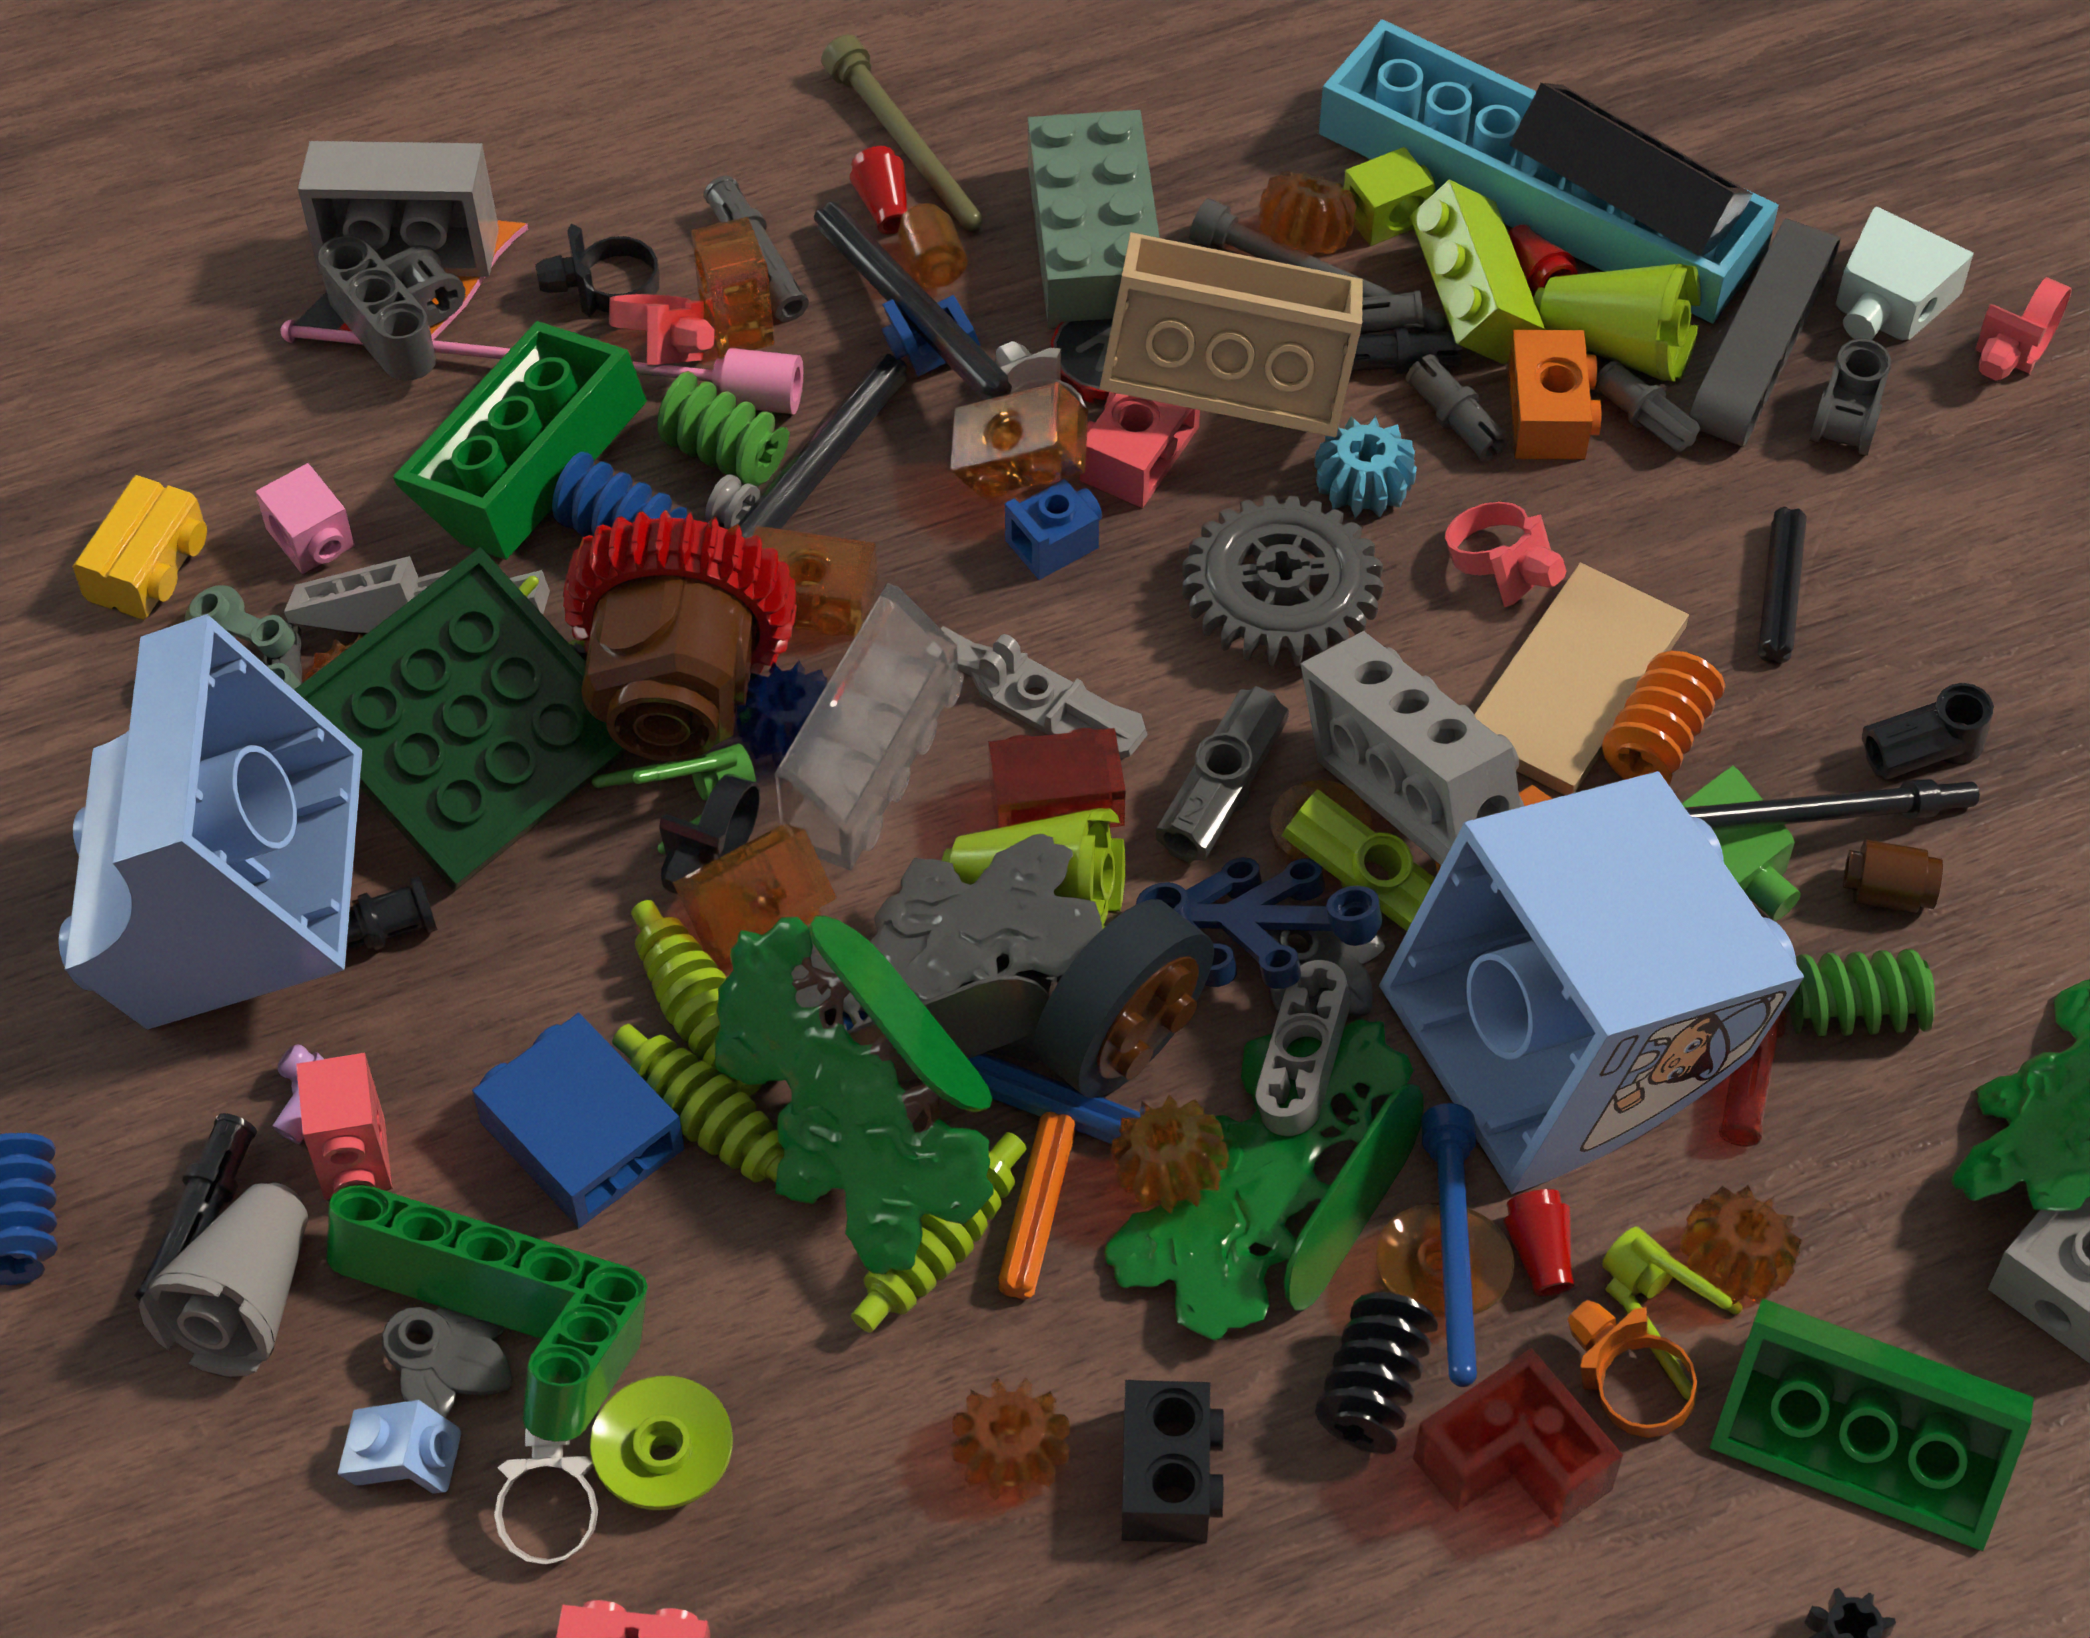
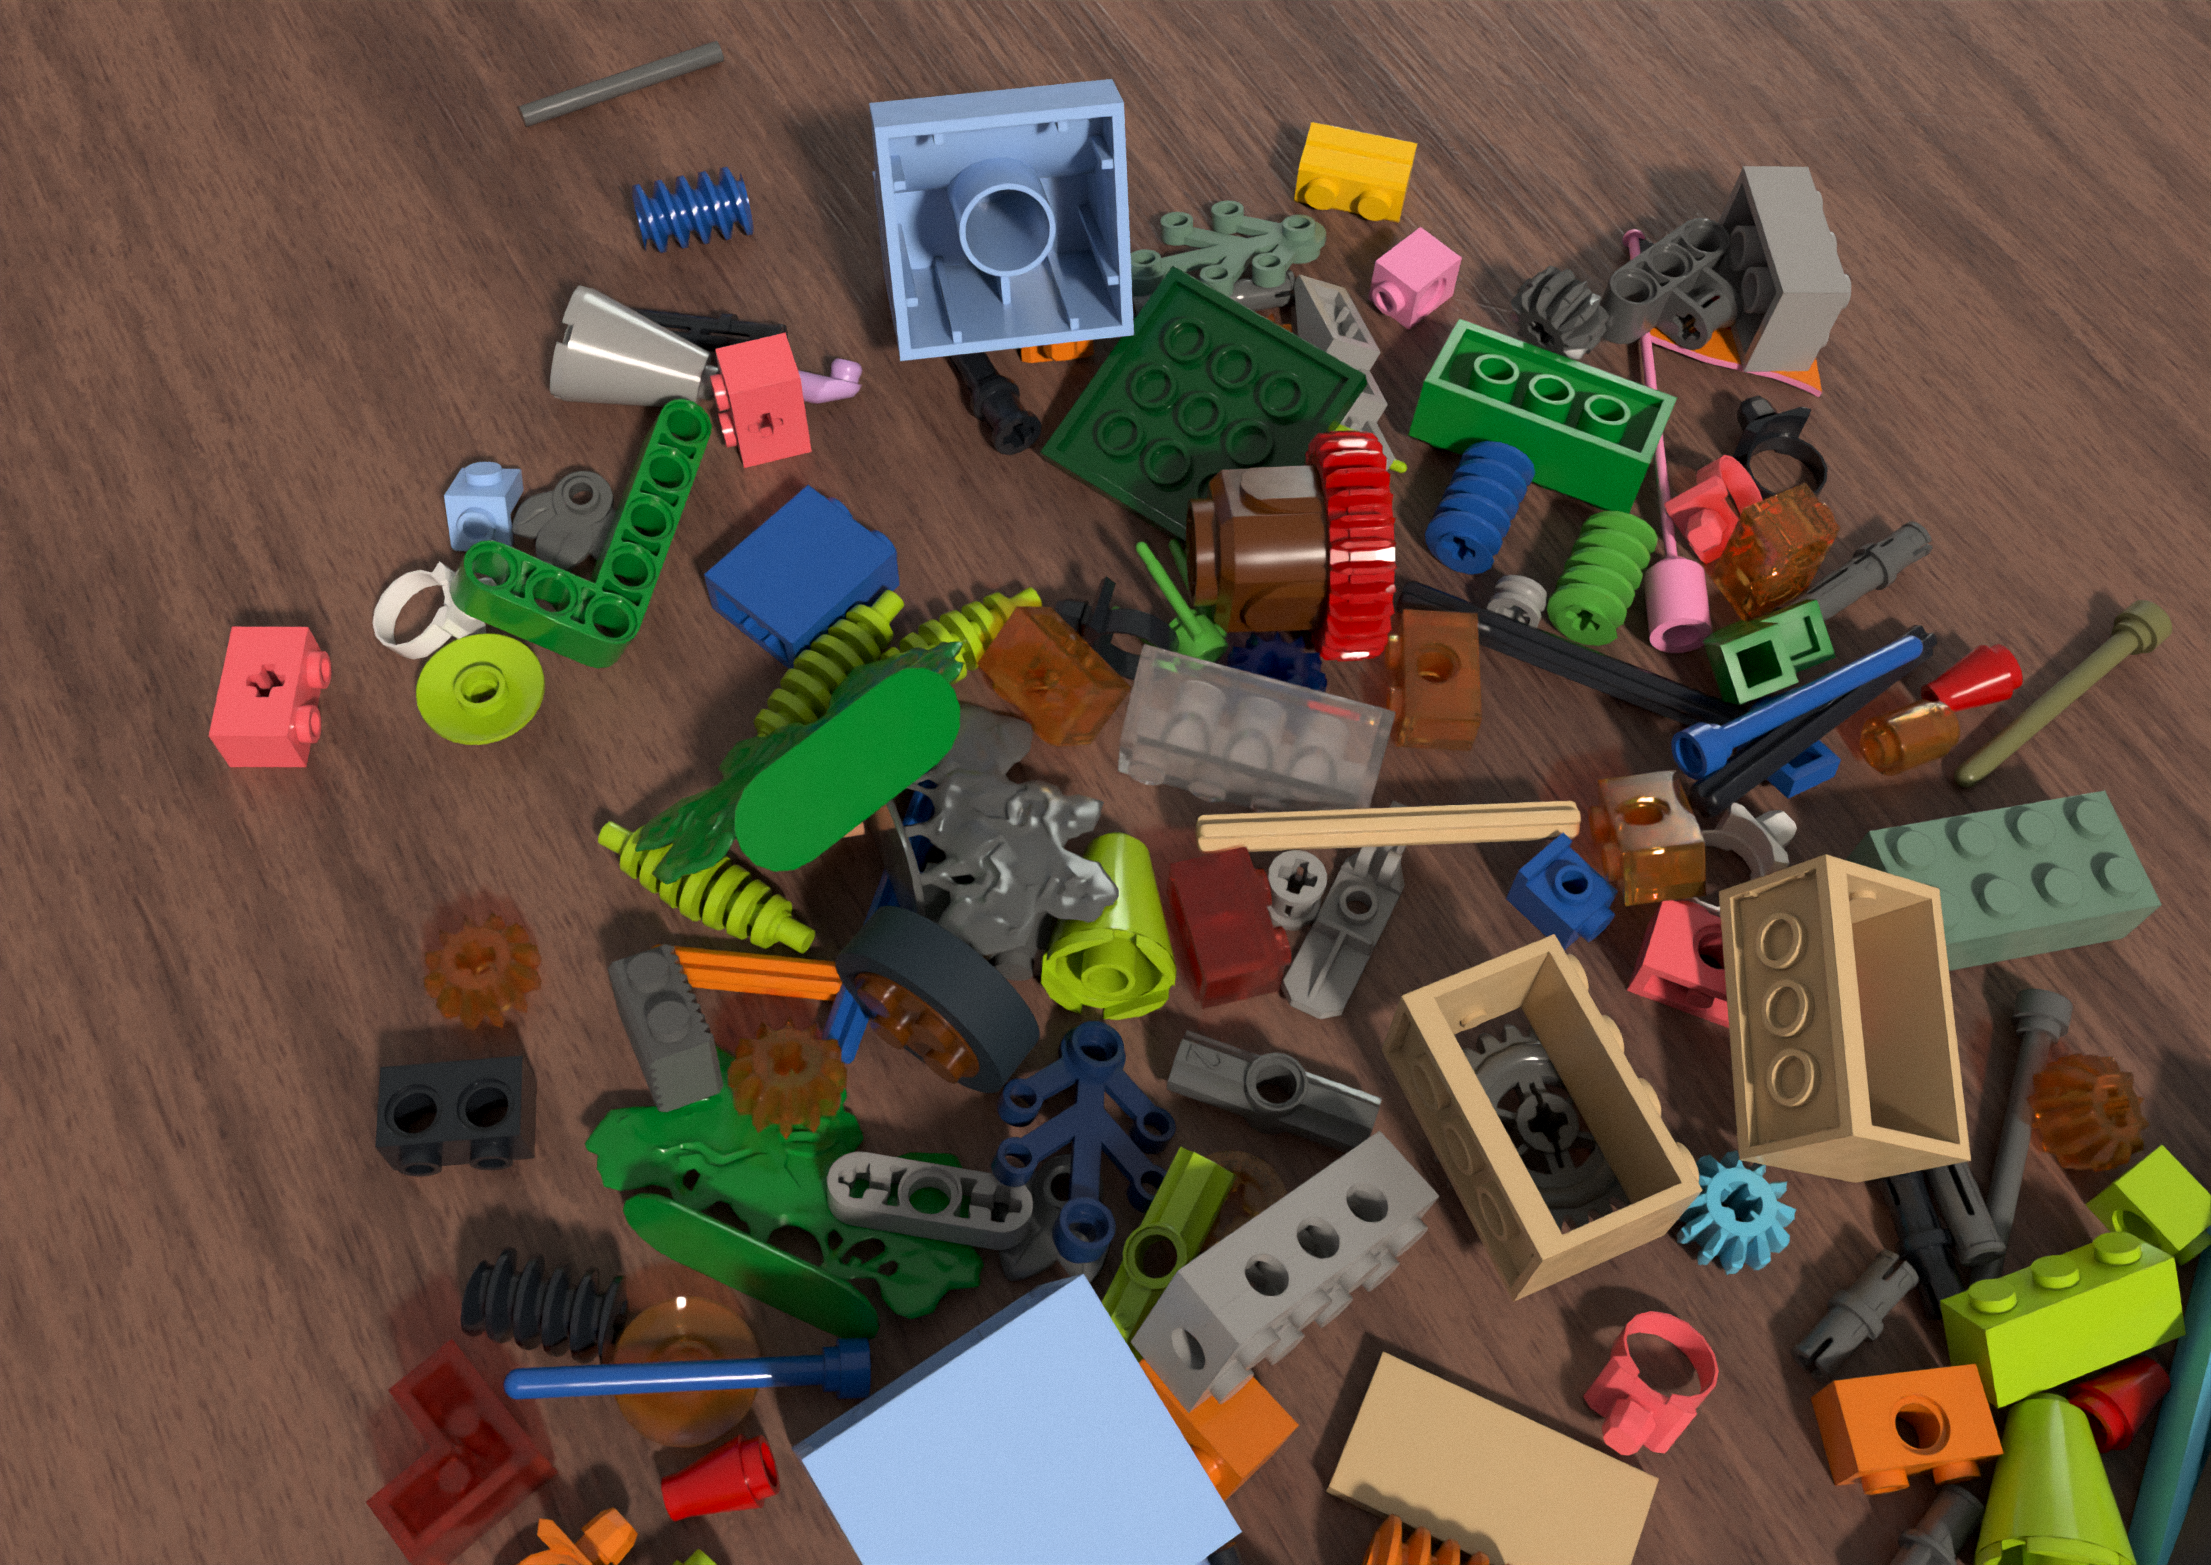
camera: 80 degrees right, 5 degrees up
(400, 399) = (1559, 313): none -> dark grey gear
(839, 323) = (1768, 651): none -> green brick
(945, 372) = (1707, 747): none -> blue piece
(977, 639) = (1387, 826): none -> tan axle
(1019, 713) = (1311, 886): none -> light grey bush
(1105, 1254) = (666, 1028): none -> dark grey brick
(1313, 595) = (1476, 1148): none -> tan hose

